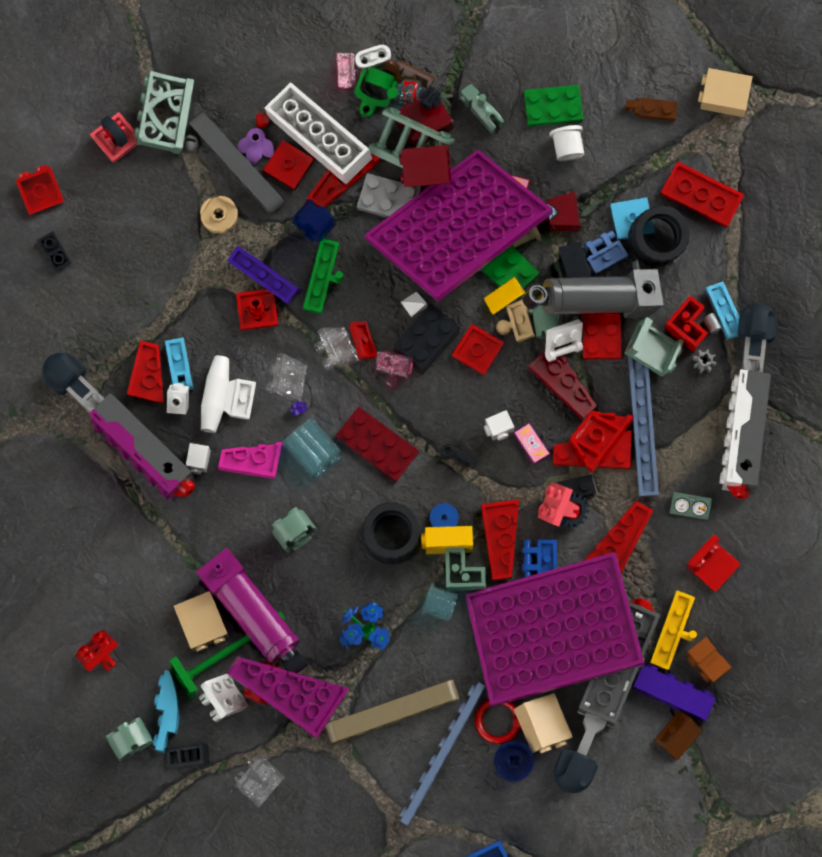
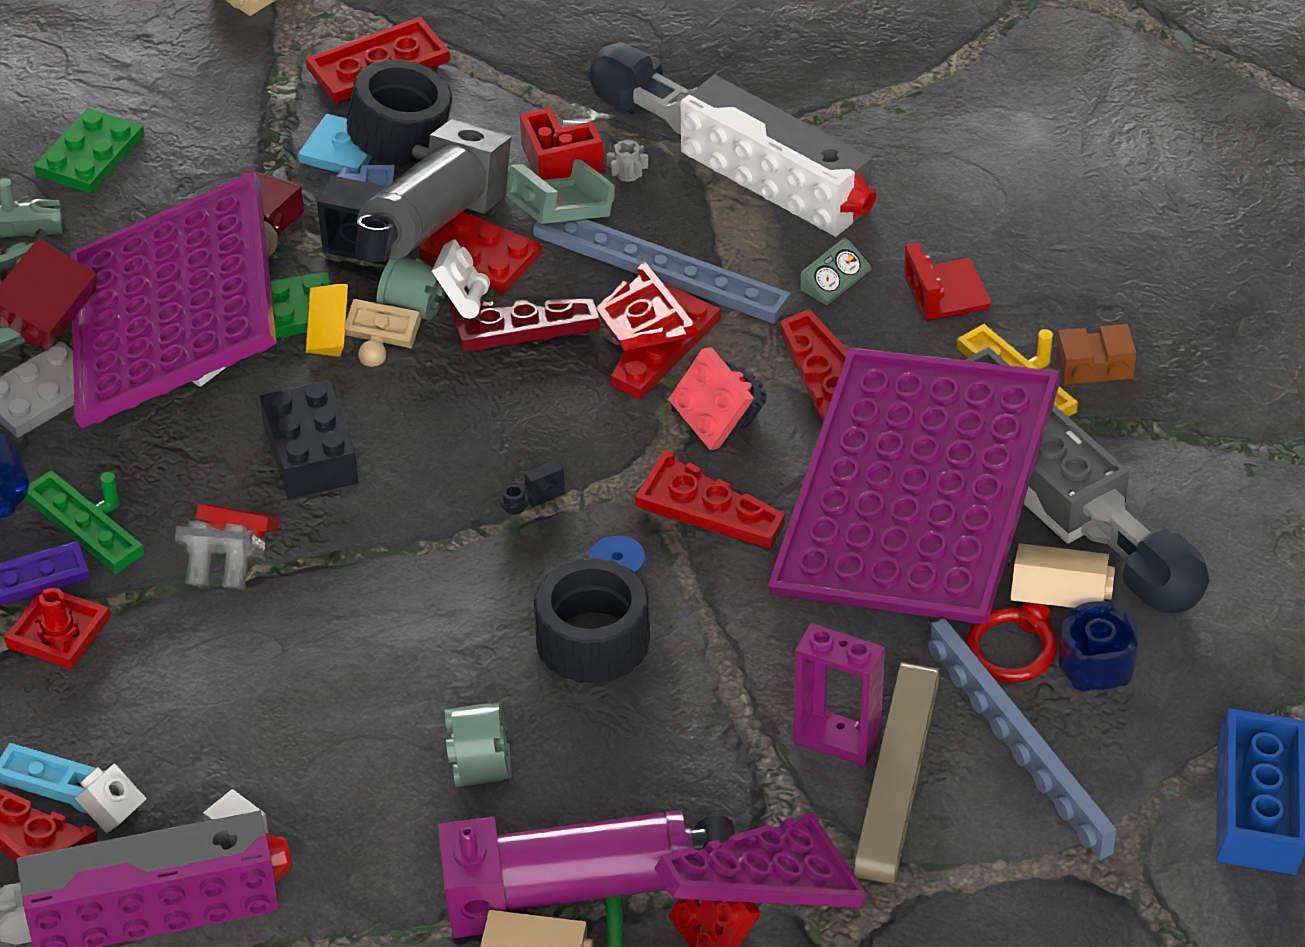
camera: 60 degrees left, 30 degrees down
(222, 395) = (163, 737): white plate -> none
(253, 461) = (309, 754): dark pink wing -> none
(288, 378) = (212, 623): clear plate -> none
(298, 408) = (273, 650): dark purple plate -> none
(312, 449) = (359, 664): clear light blue brick -> none
(354, 633) = (727, 726): blue plant -> none
(377, 444) = (422, 585): dark red plate -> none
(394, 365) = (315, 493): clear pink plate -> none
(399, 669) = (813, 722): none -> magenta piece
(414, 304) = (237, 435): white slope -> none
(438, 539) = (666, 548): yellow brick -> none
(439, 603) = (756, 617): clear light blue piece -> none
(461, 577) = (729, 571): sand green brick -> none
(477, 349) = (381, 392): red plate -> none
(499, 426) = (526, 420): white brick -> none
(531, 443) = (586, 403): bright pink tile -> none
(546, 556) = (780, 462): blue plate -> none
(568, 142) = (163, 147): white piece -> none
(653, 108) = (202, 55): reddish brown hinge -> none
(674, 693) = (1133, 407): dark purple brick -> none
(678, 735) = (1187, 441): reddish brown panel -> none
(724, 309) = (573, 108): medium azure plate -> none

